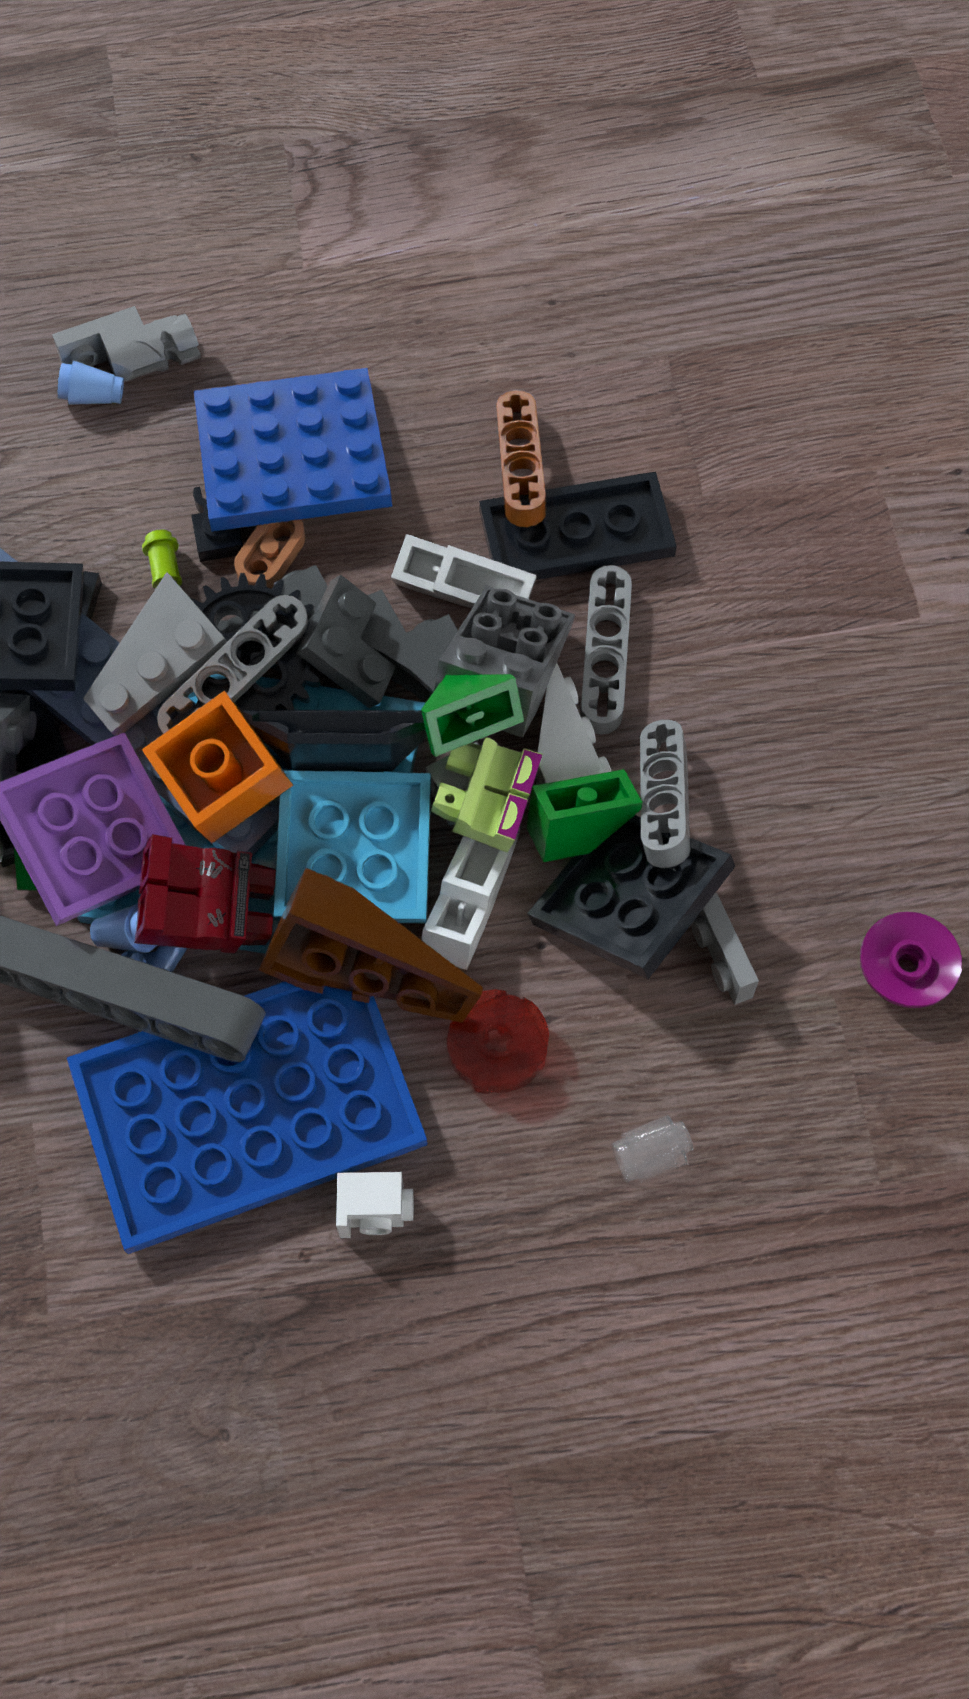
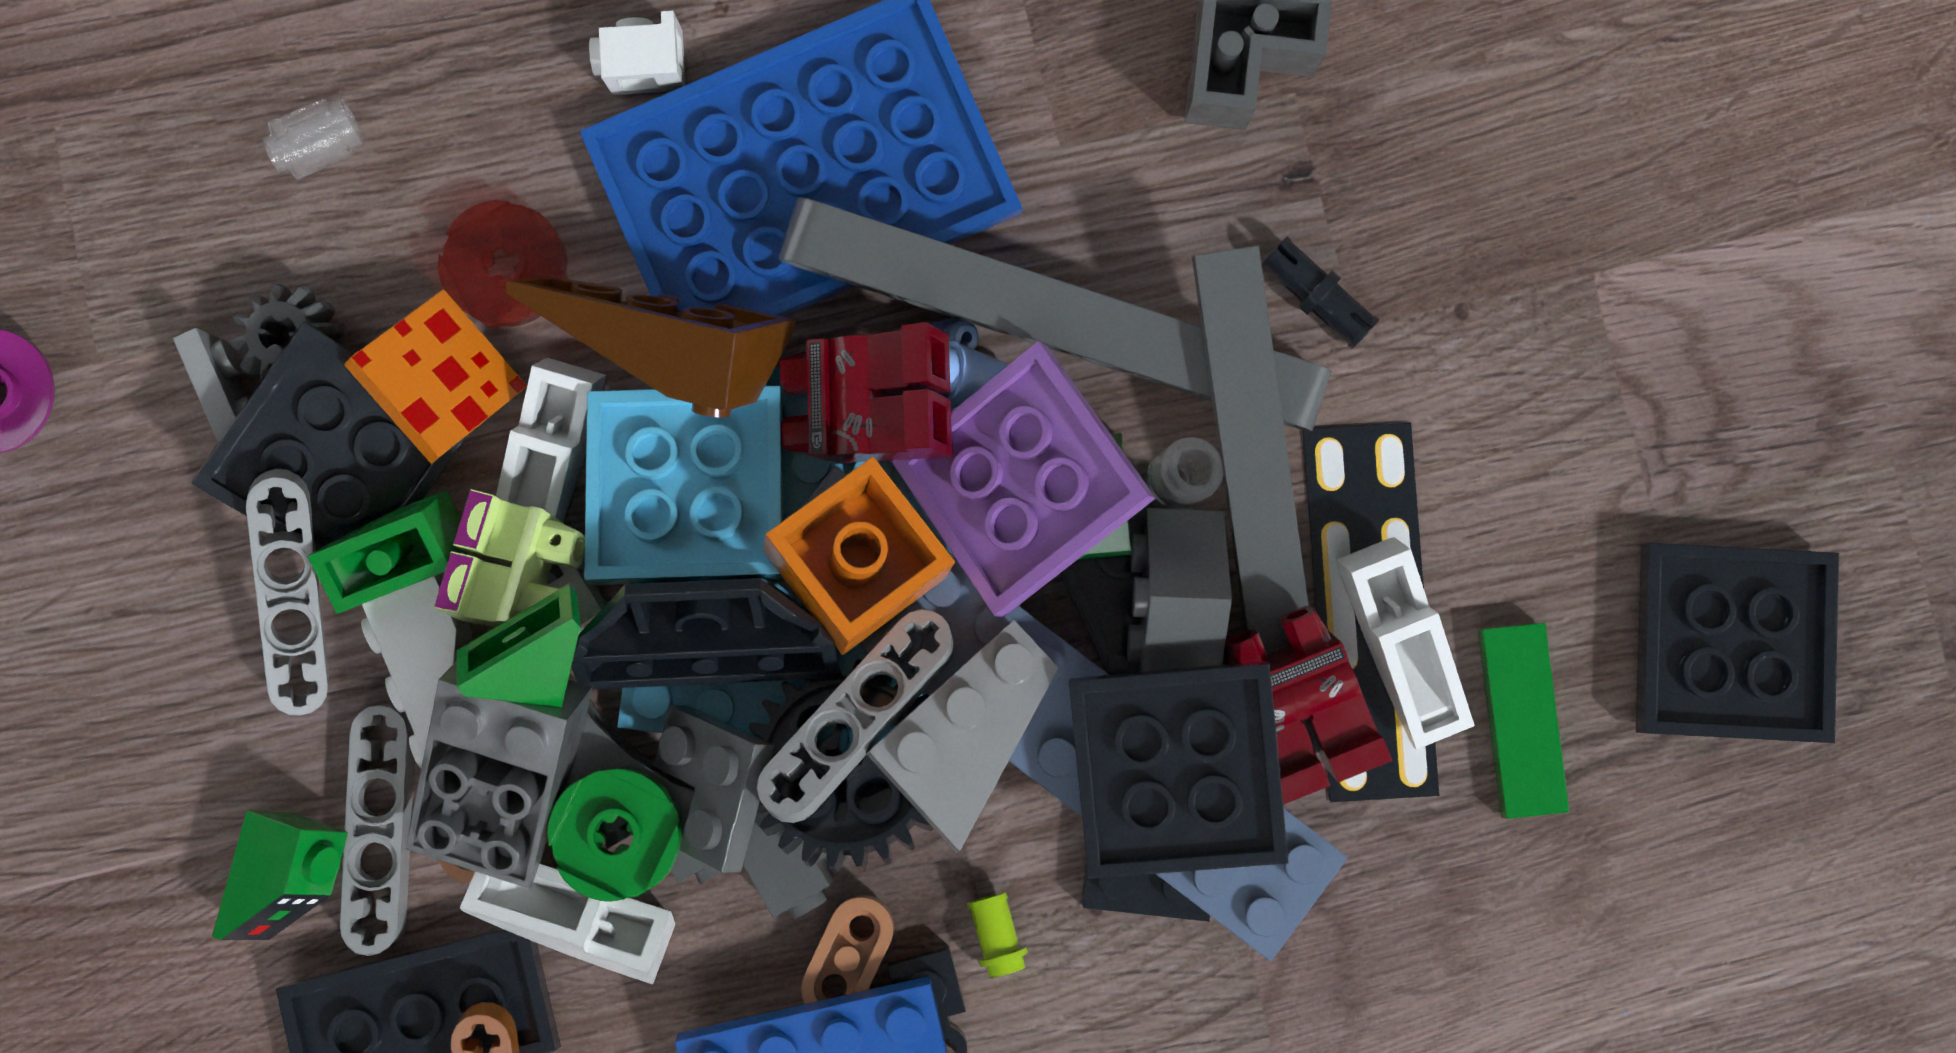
camera: 175 degrees right, 20 degrees up
(419, 638) = (579, 846): none -> green plate
(547, 944) = (435, 375): none -> orange tile
(671, 1005) = (272, 318): none -> dark grey gear
(672, 617) = (277, 874): none -> green slope

